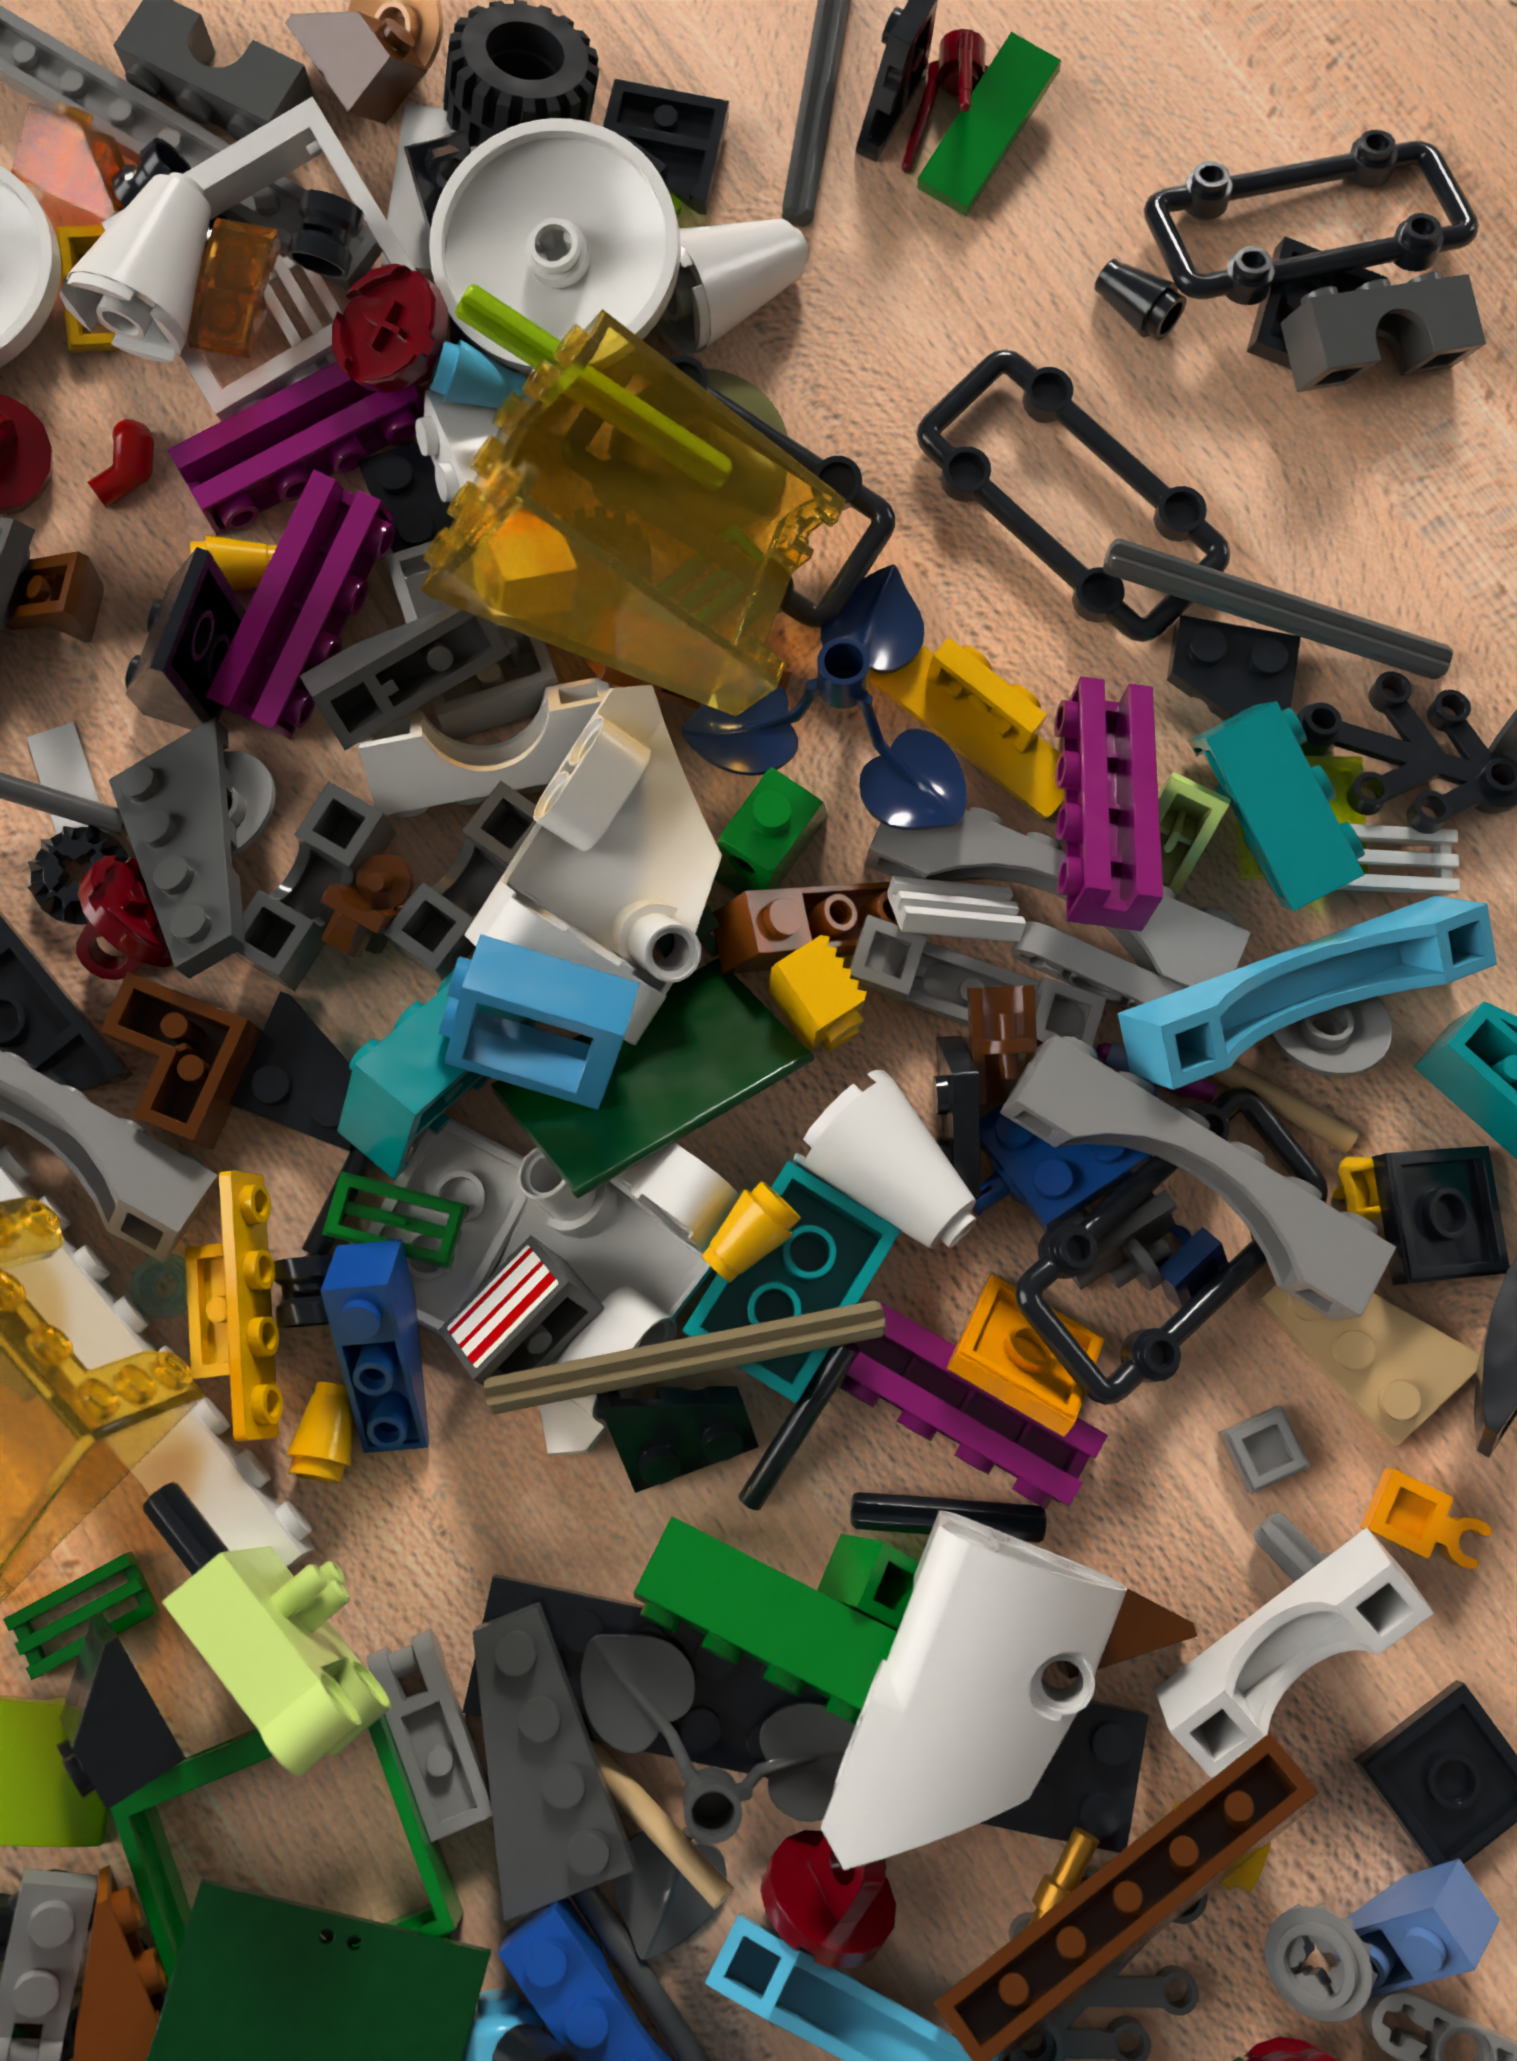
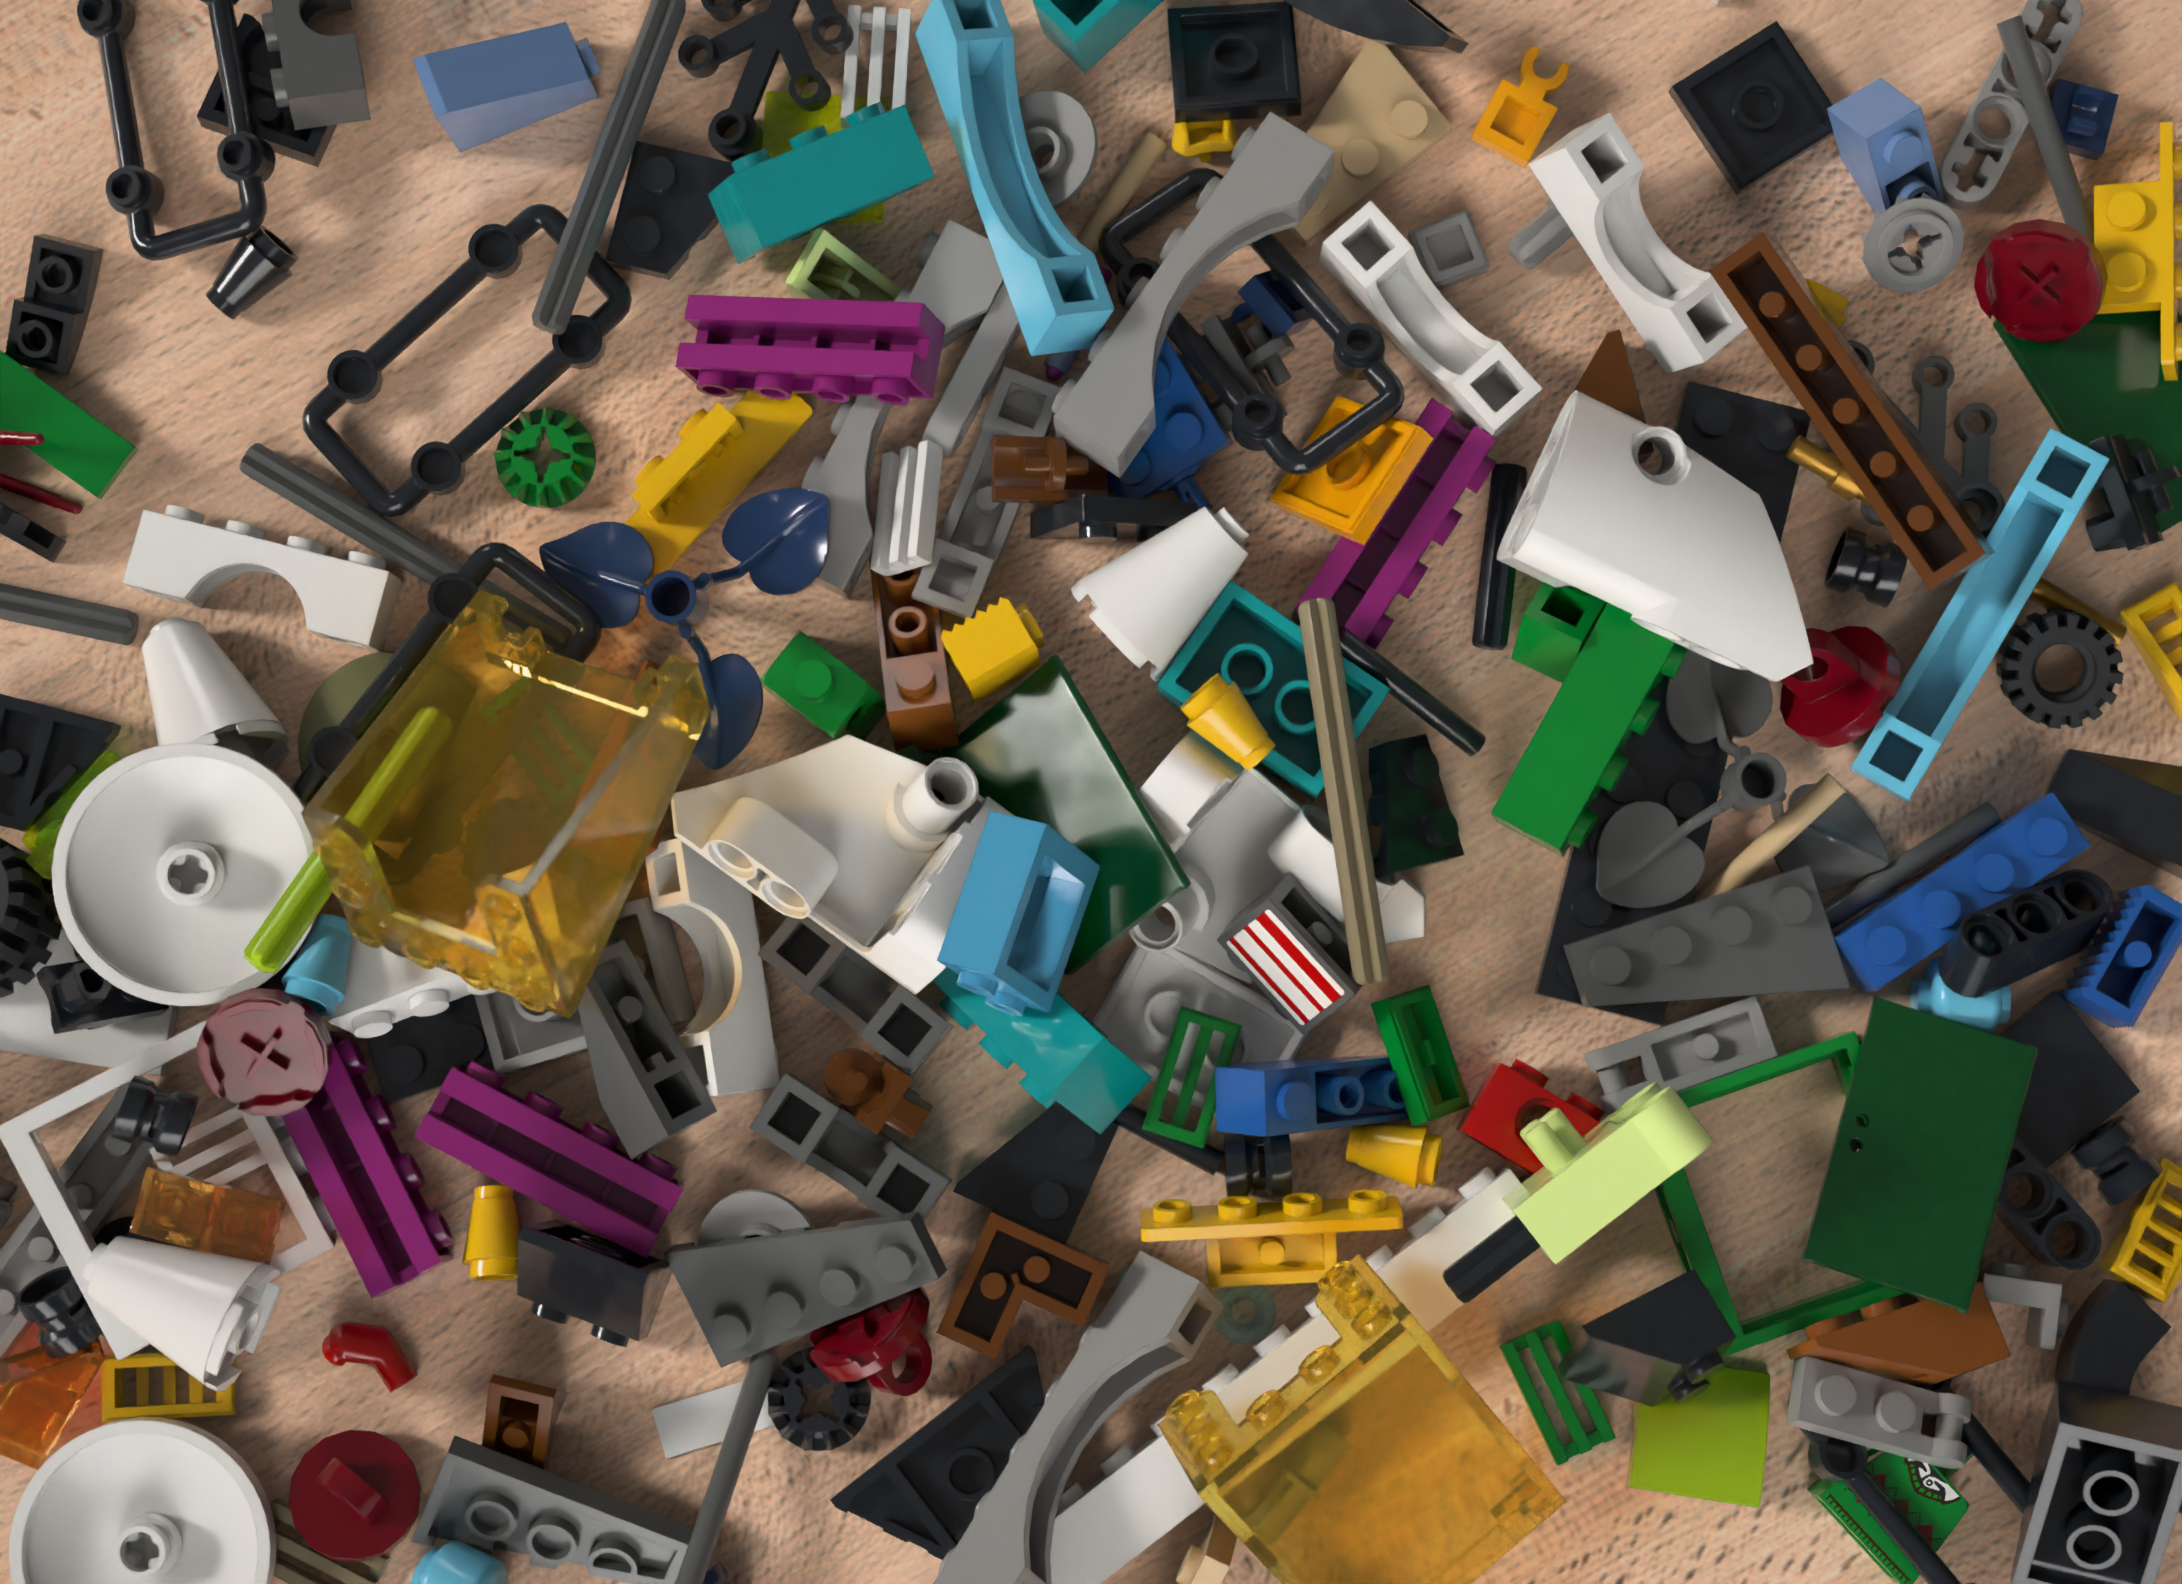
camera: 75 degrees left, 5 degrees up
(384, 1550) = (1502, 1101): none -> red brick
(420, 1448) = (1415, 1057): none -> green tile
(834, 386) = (189, 560): none -> white arch
(890, 443) = (385, 537): none -> dark grey axle
(958, 1931) = (1874, 570): none -> black wheel
(963, 588) = (563, 479): none -> green gear
(1082, 134) = (56, 304): none -> black slope
(1219, 1392) = (1394, 290): none -> white arch
(1345, 505) = (507, 82): none -> medium blue slope

